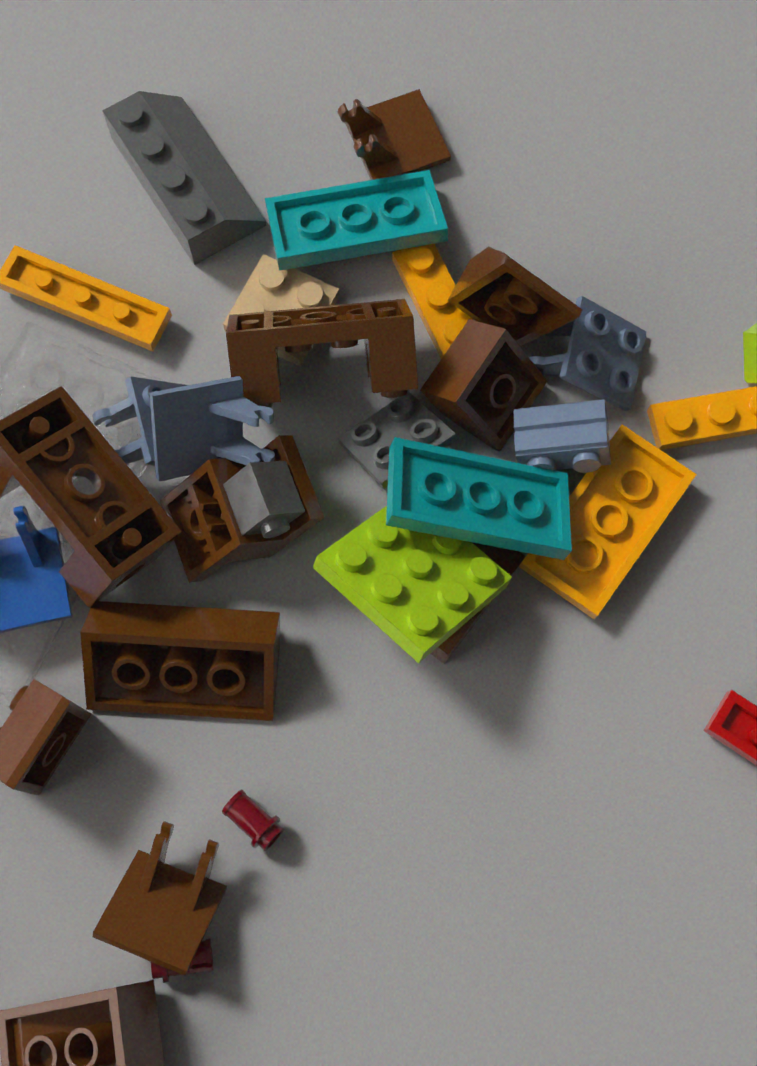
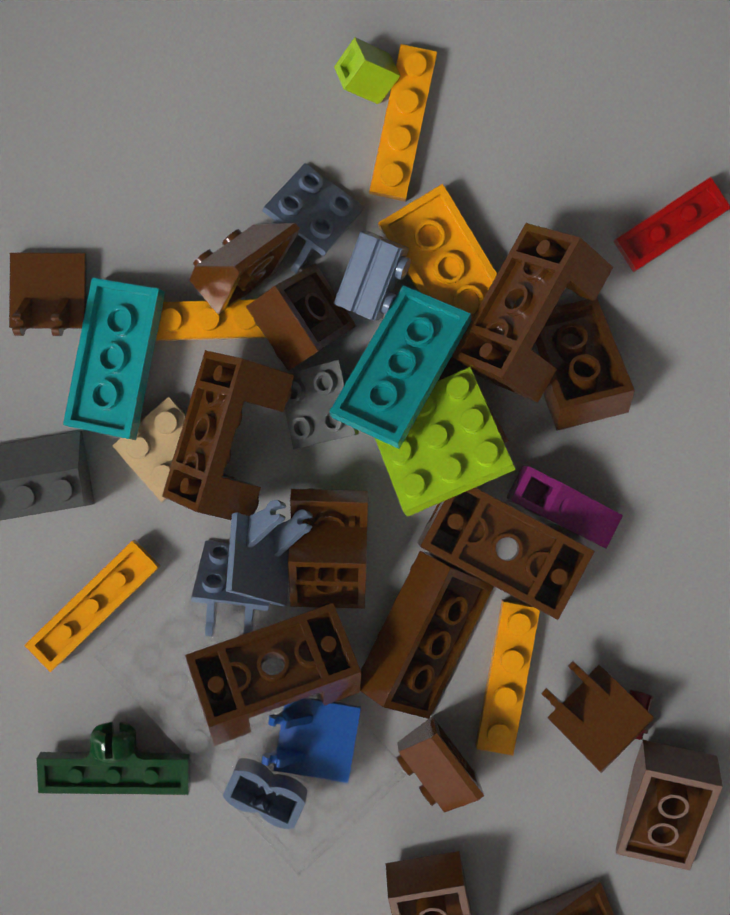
camera: 65 degrees left, 15 degrees up
(168, 781) = (507, 678): none -> light orange plate
(253, 820) = (562, 629): dark red pin -> none
(264, 498) = (337, 531): flat silver brick -> none
(310, 751) = (541, 571): none -> reddish brown plate
(399, 760) = (564, 506): none -> magenta slope
(569, 709) = (590, 371): none -> reddish brown slope
(660, 605) = (502, 336): none -> reddish brown plate

